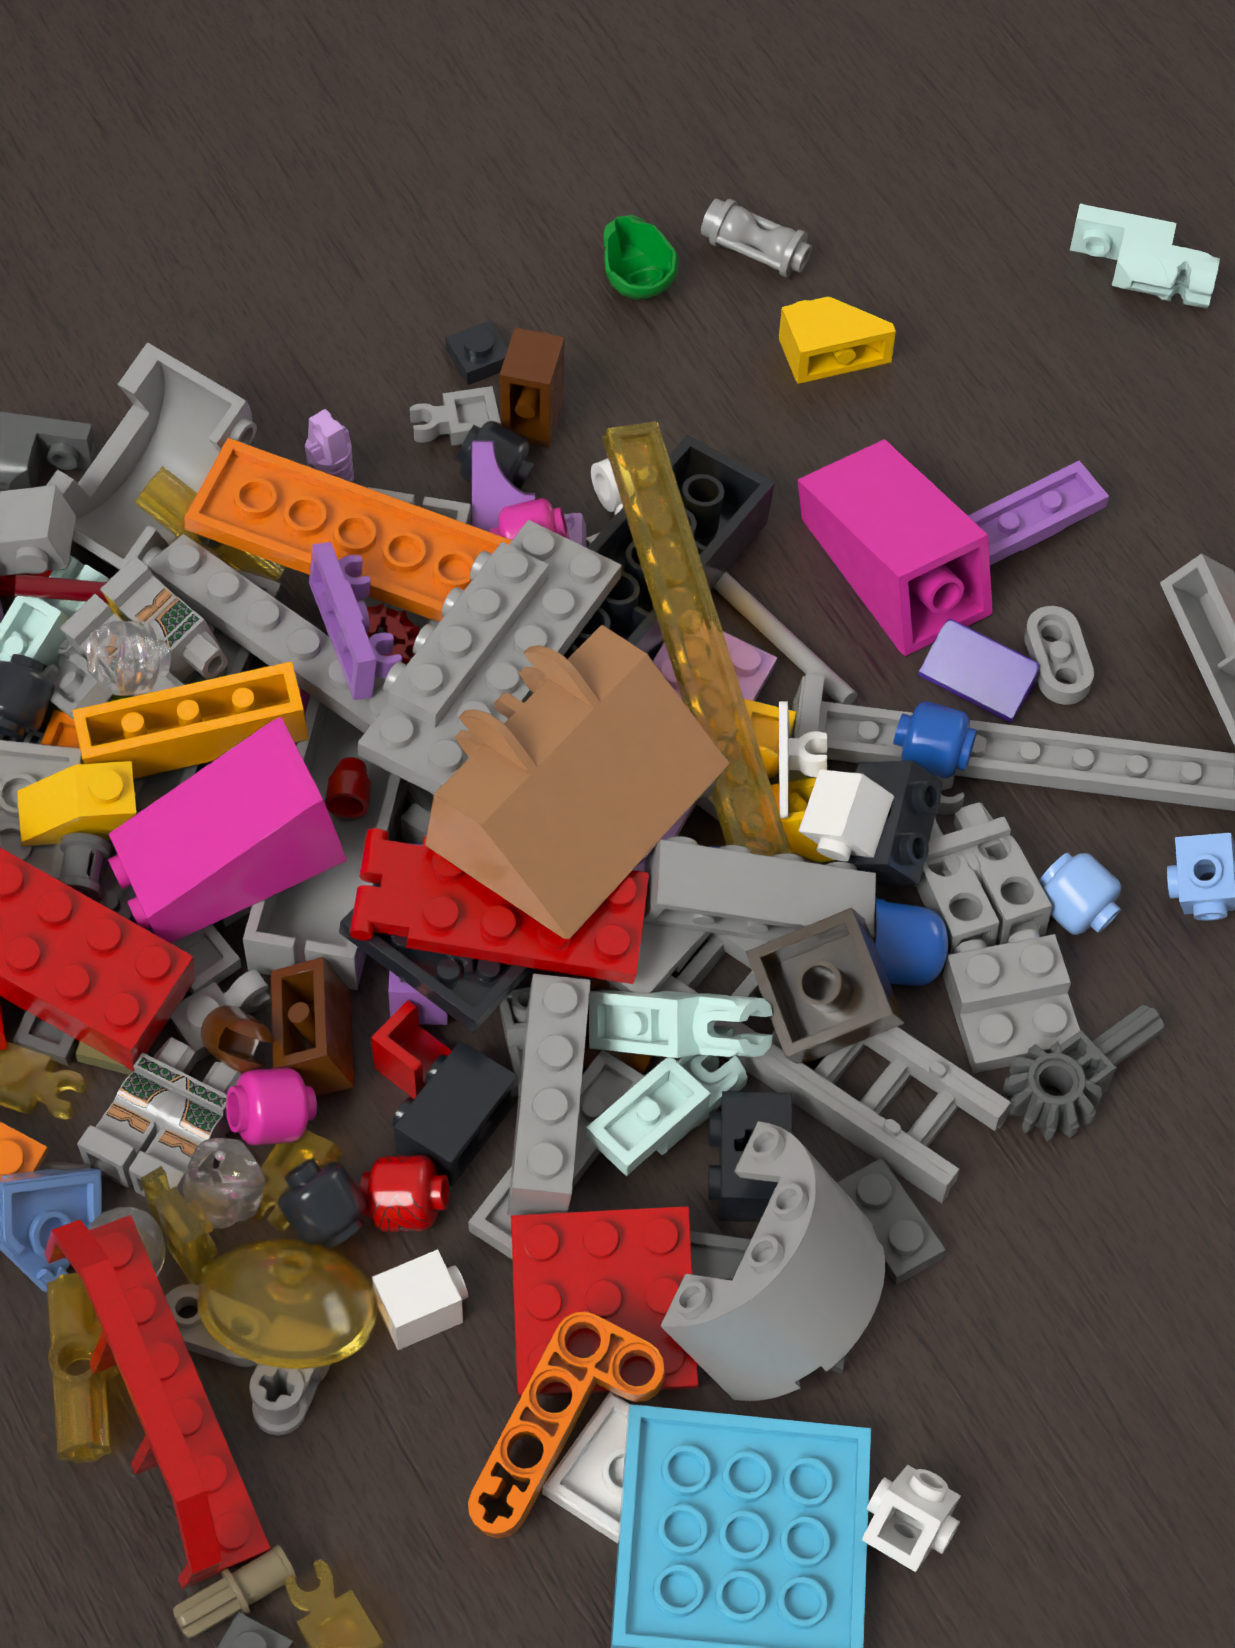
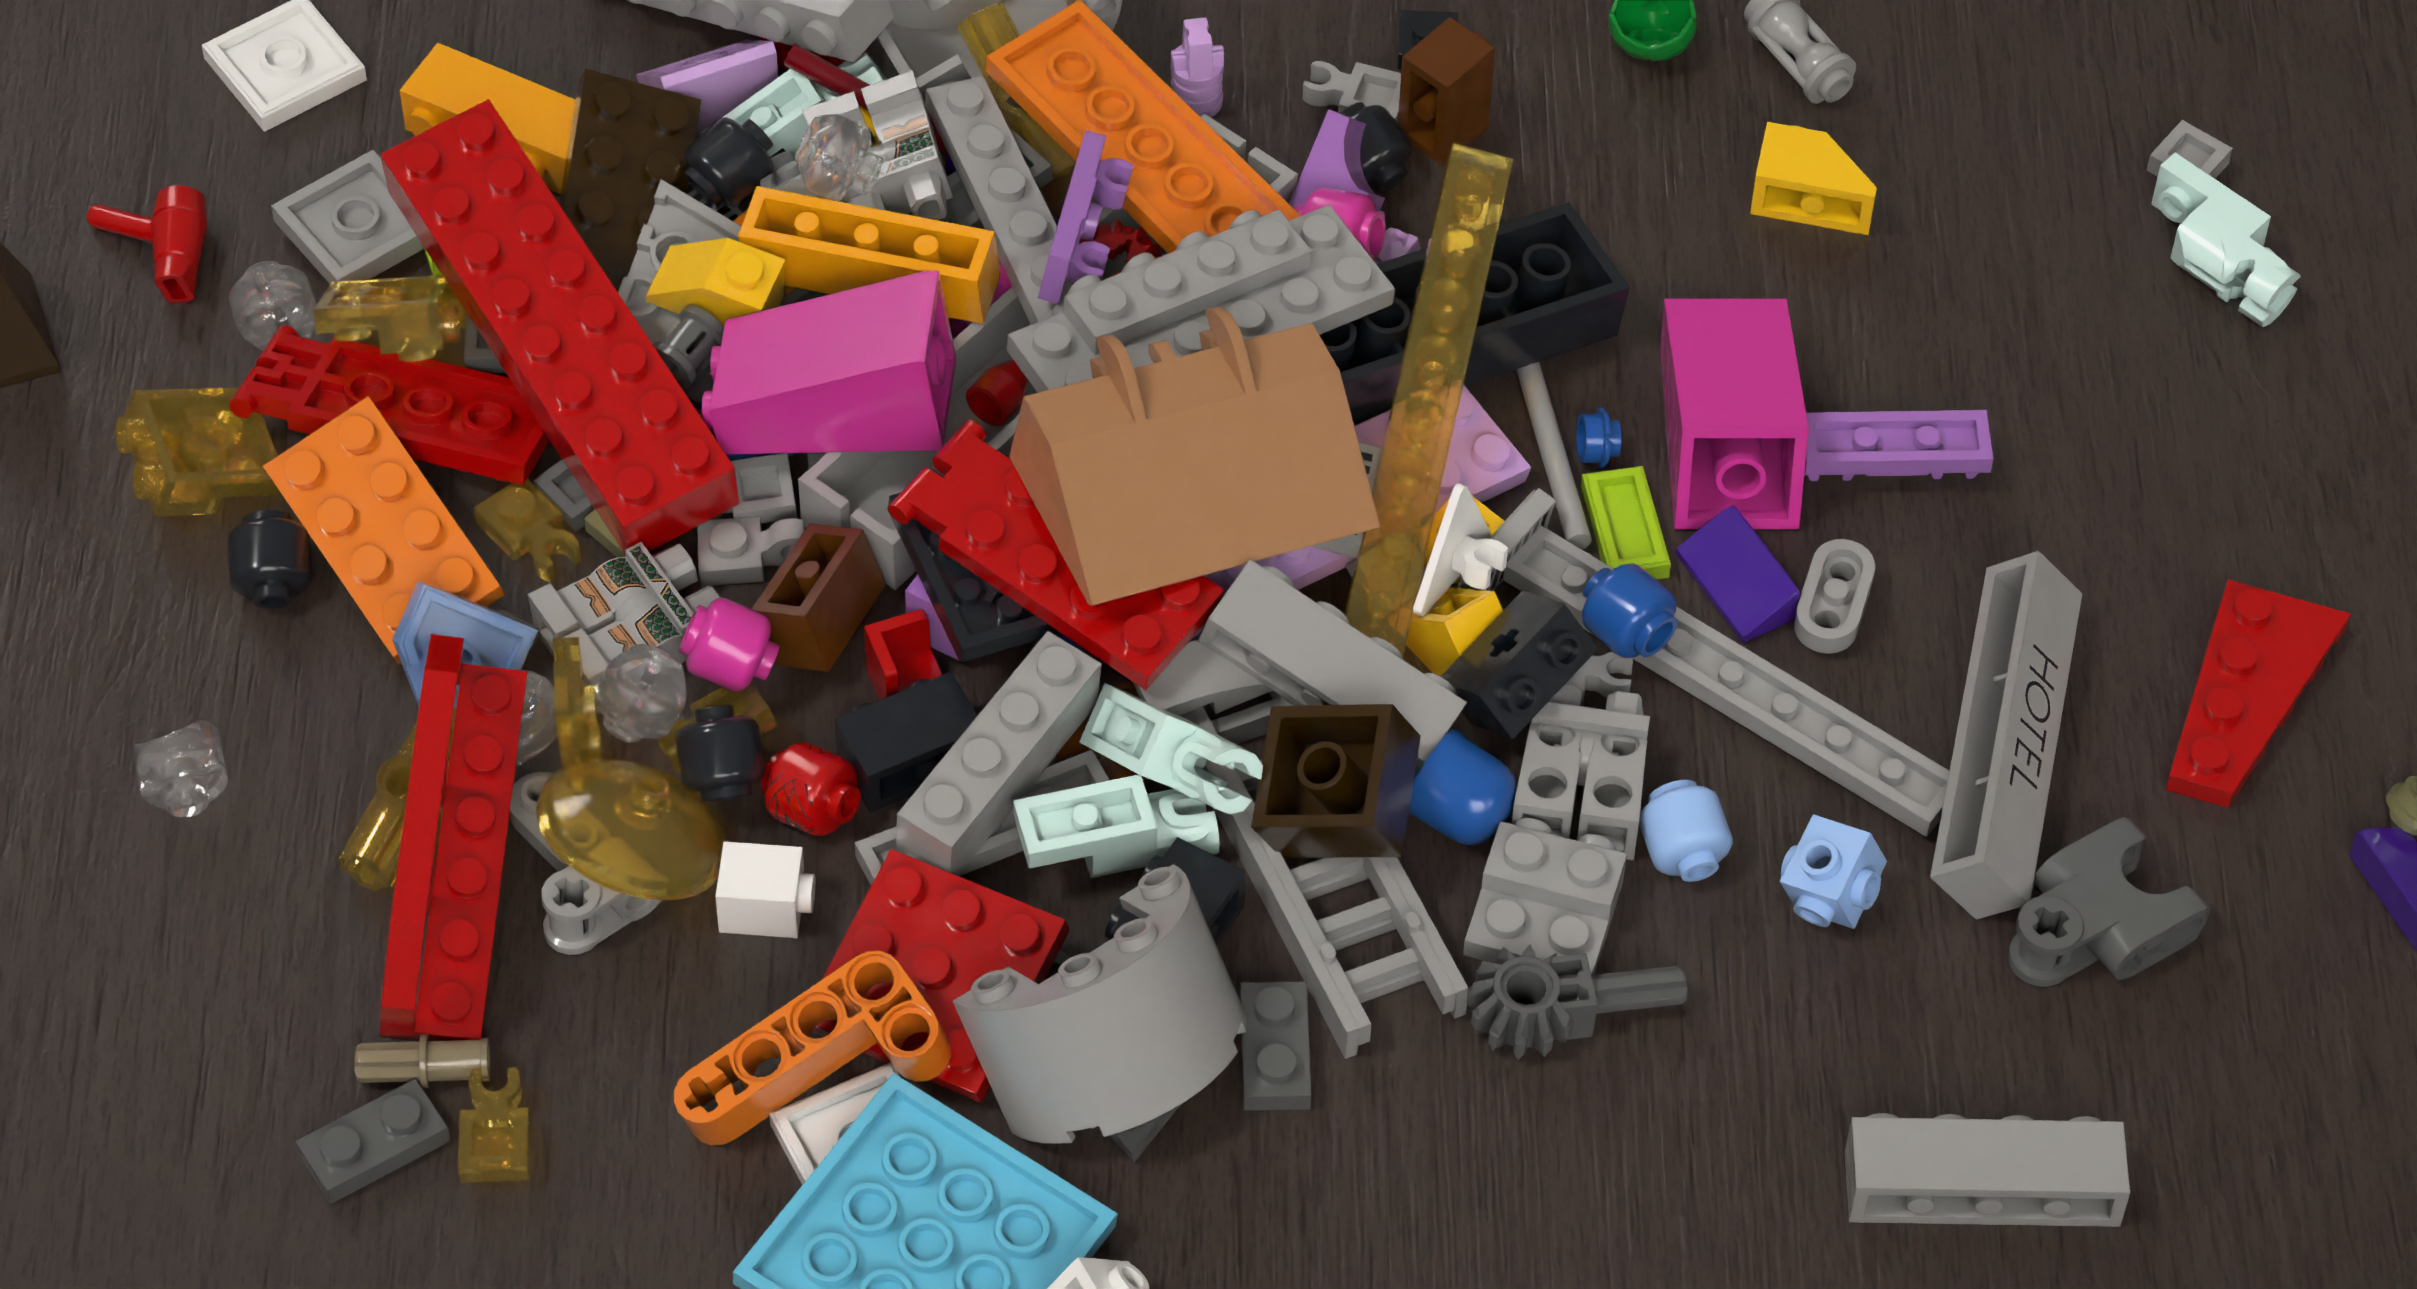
camera: 30 degrees right, 5 degrees down
(233, 1037) = (737, 568): reddish brown piece -> none
(809, 611) = (1597, 438): none -> blue plate
(846, 814) = (1466, 628): white brick -> none
(870, 668) = (1625, 520): none -> lime tile
(1076, 192) = (2194, 146): none -> light grey plate

